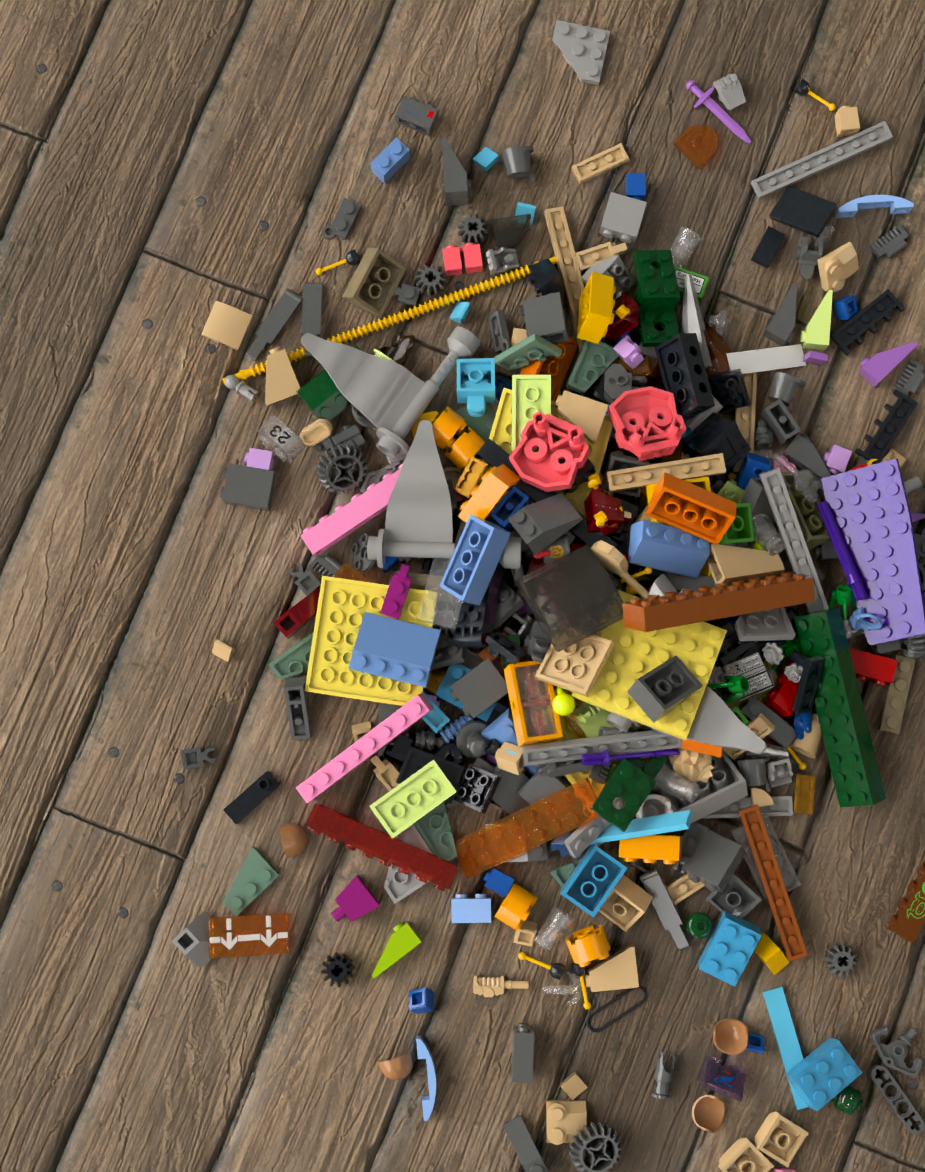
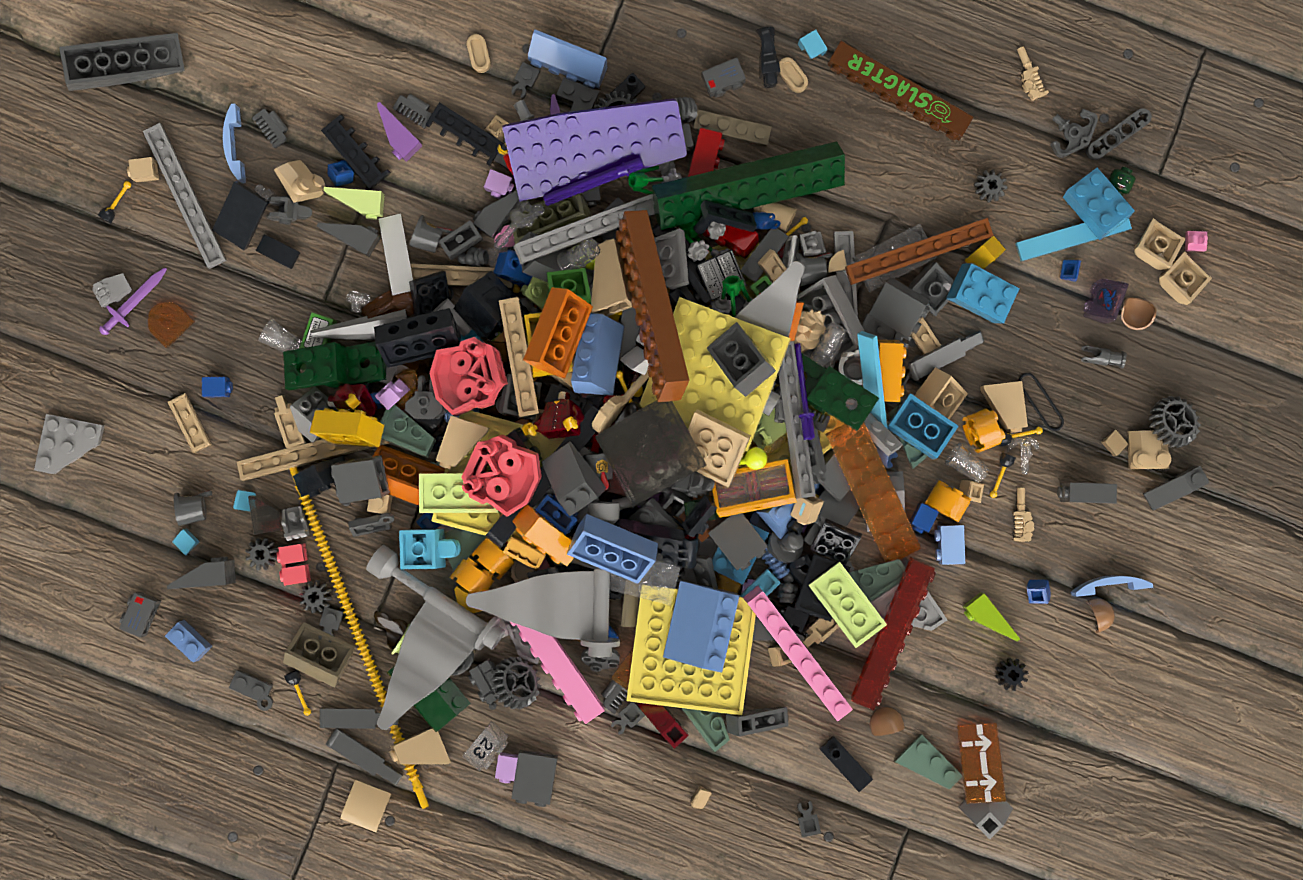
camera: 90 degrees left, 5 degrees up
(232, 382) = (425, 797): light grey pin -> none
(316, 432) = (477, 710): tan tile -> none
(354, 901) = (945, 659): magenta torso -> none
(397, 593) = (644, 625): magenta hinge -> none
(460, 312) = (349, 565): medium azure slope -> none
(525, 351) = (394, 501): sand green wing -> none
(622, 218) = (249, 400): light grey brick -> none
(699, 924) = (960, 322): dark green head -> none
(730, 1036) = (1065, 292): medium nougat helmet -> none
(804, 794) = (831, 219): pearl gold plate -> none
(815, 357) = (393, 205): medium lavender tile -> none
(857, 621) = (665, 166): medium blue piece -> none

